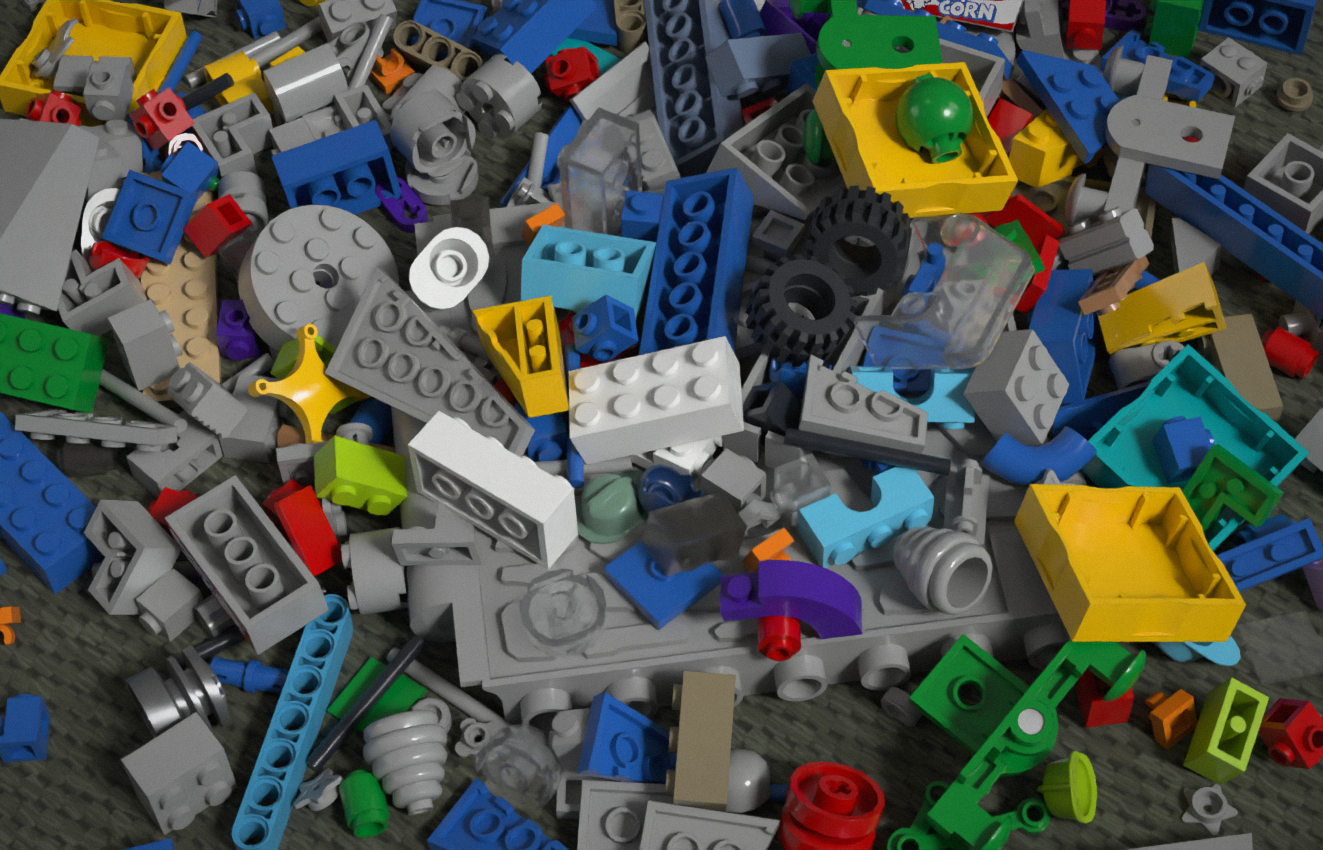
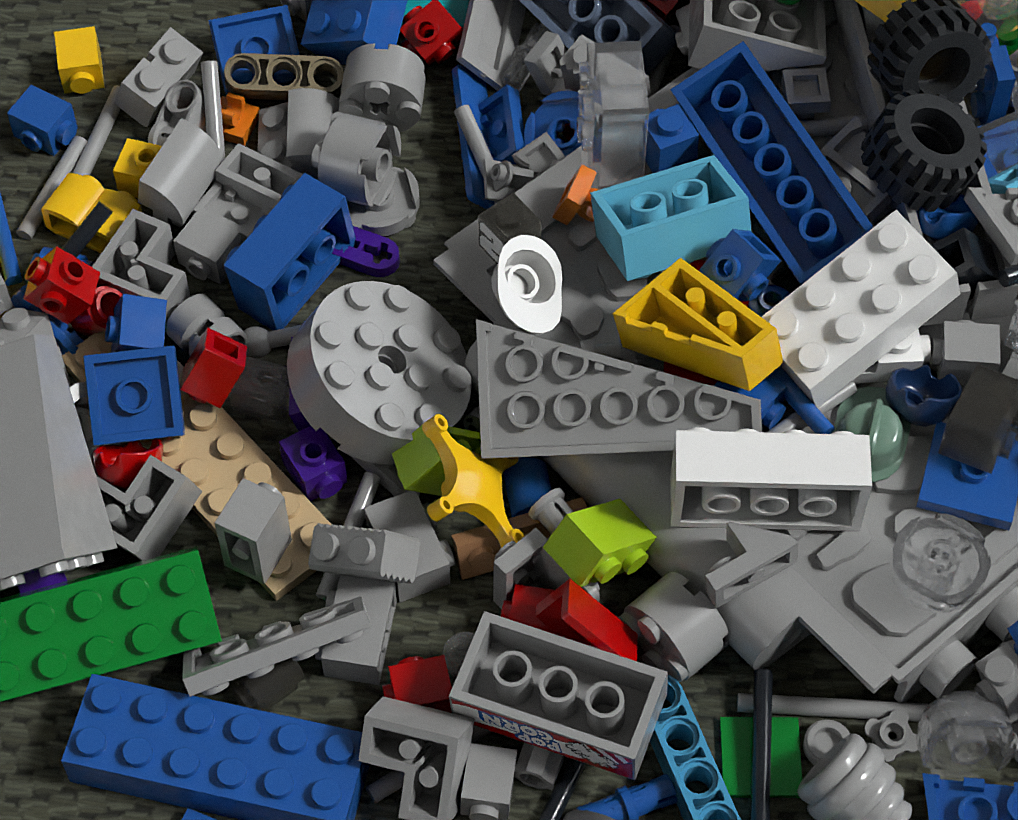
camera: 35 degrees left, 5 degrees up
(142, 401) = (284, 592): light grey bar -> none

